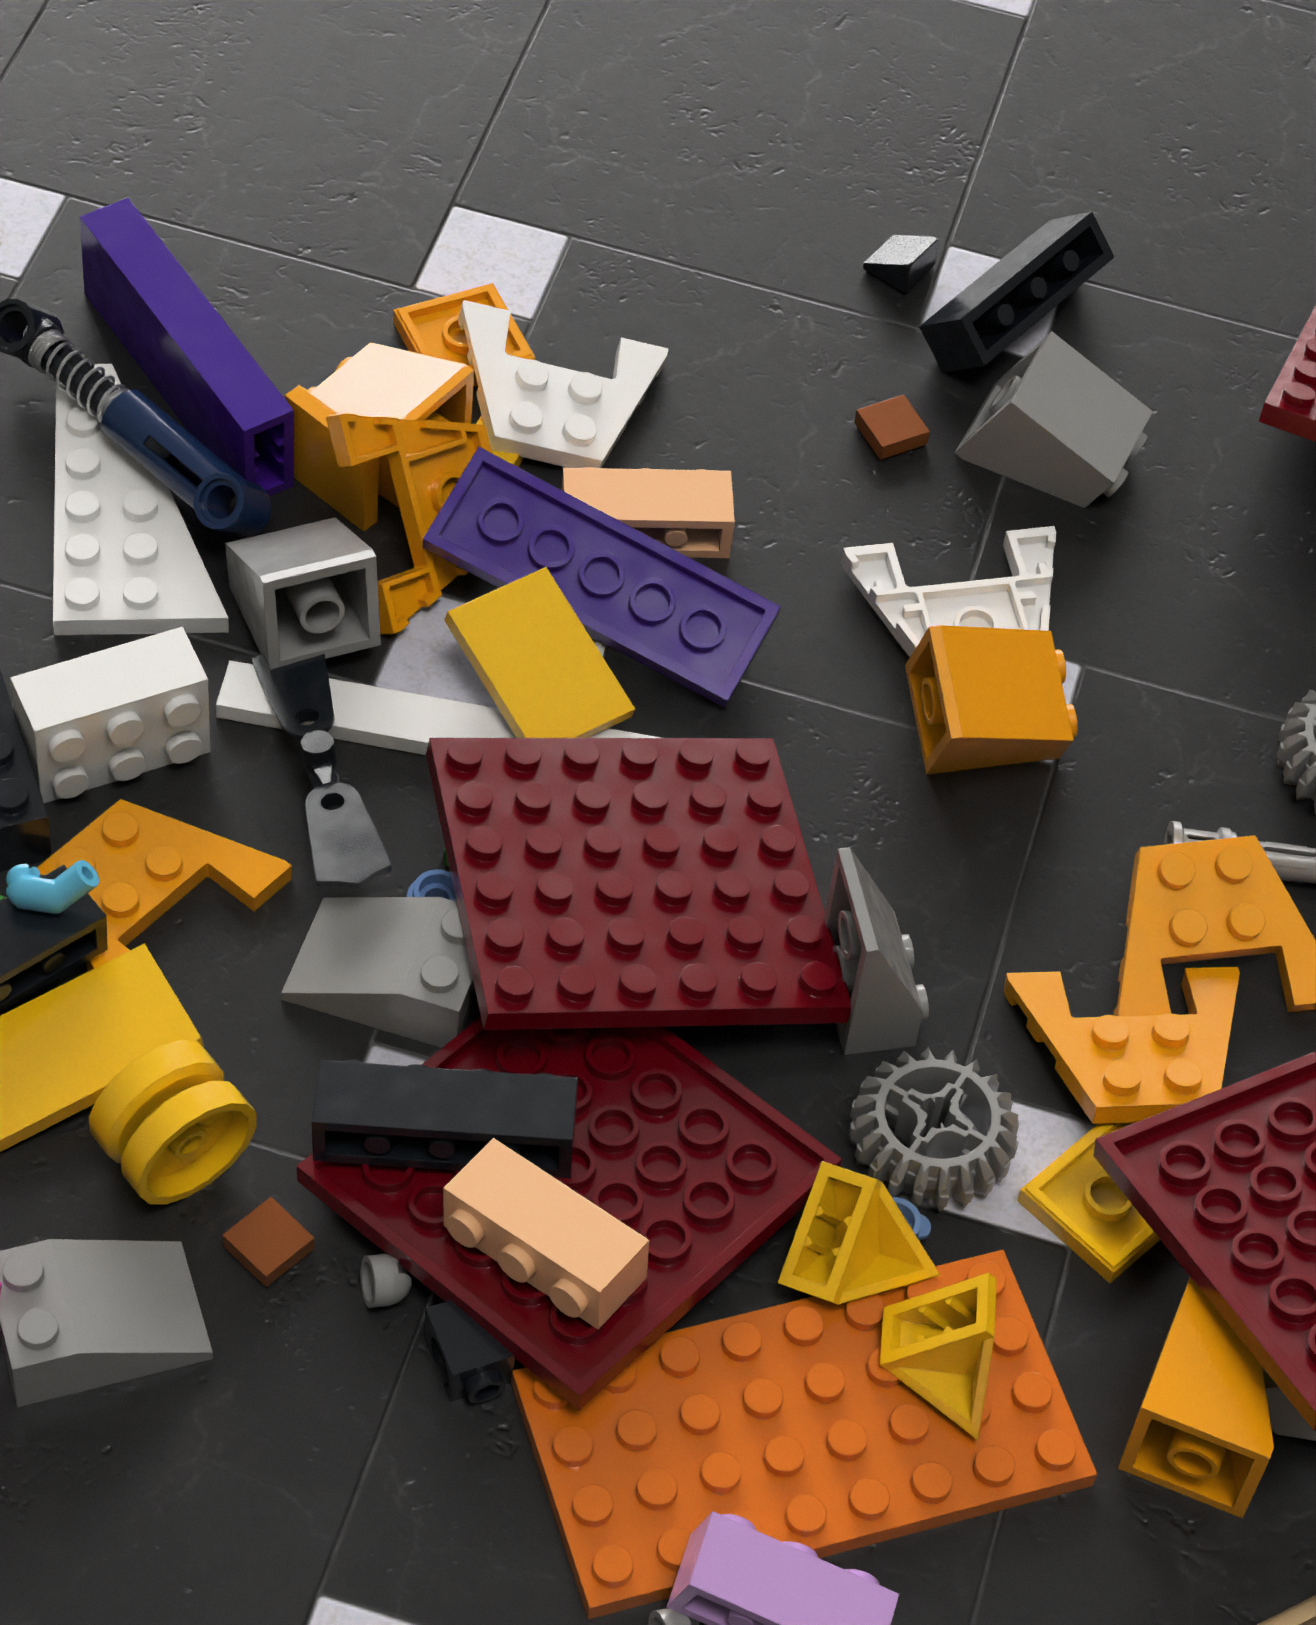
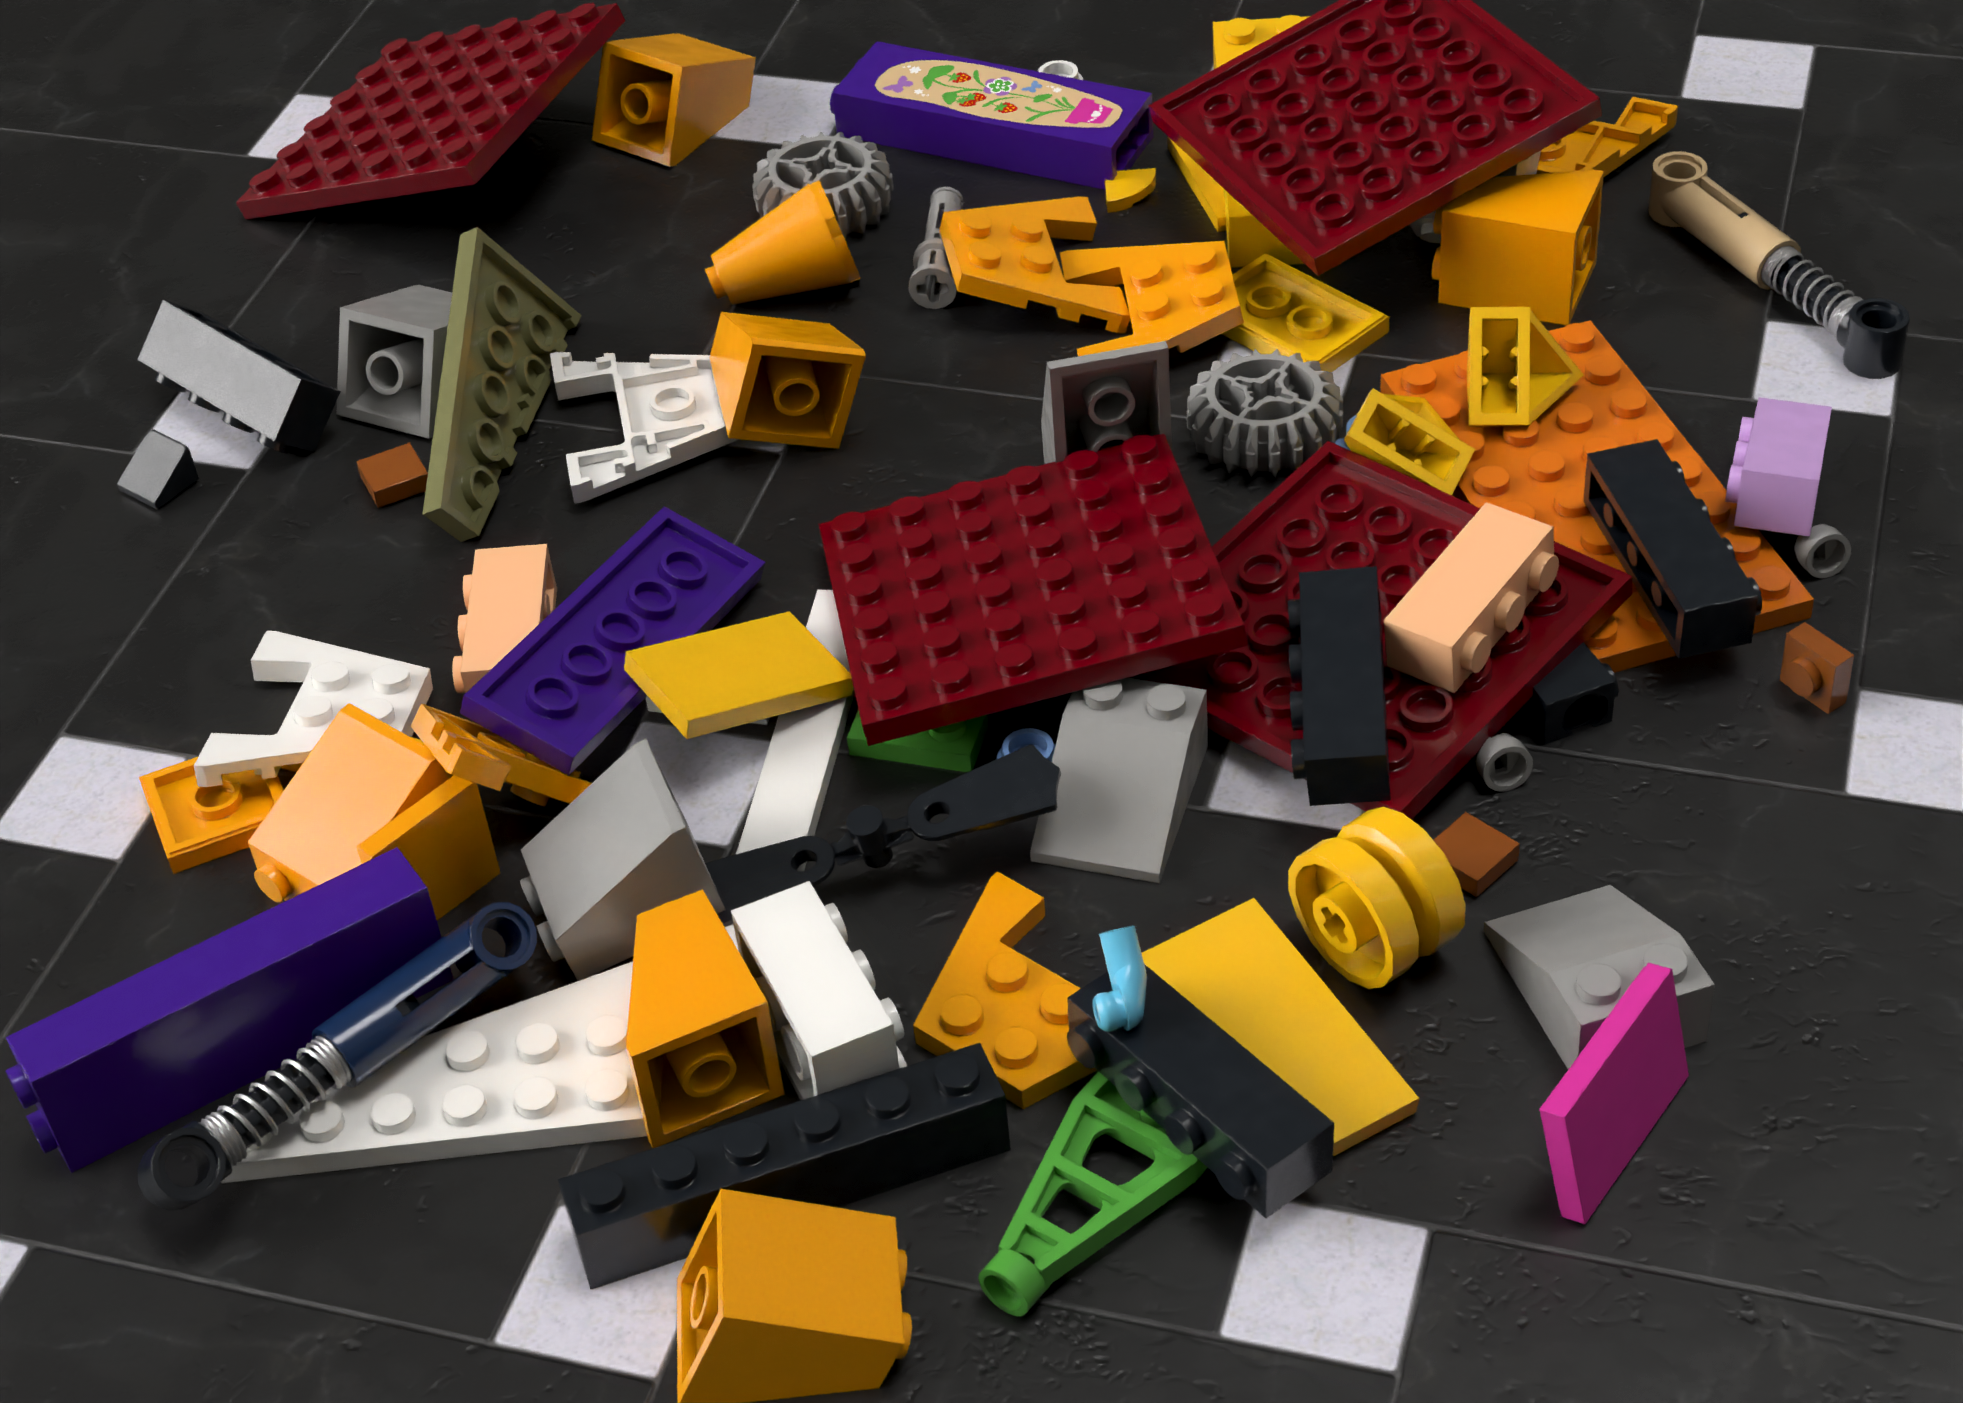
camera: 80 degrees left, 10 degrees down
(110, 604) = (695, 1023): none -> light orange slope
(473, 1580) = (1816, 667): none -> dark orange plate
(637, 1448) = (1671, 549): none -> black brick
(992, 471) = (490, 379): none -> olive wing
(1220, 721) = (785, 252): none -> light orange cone

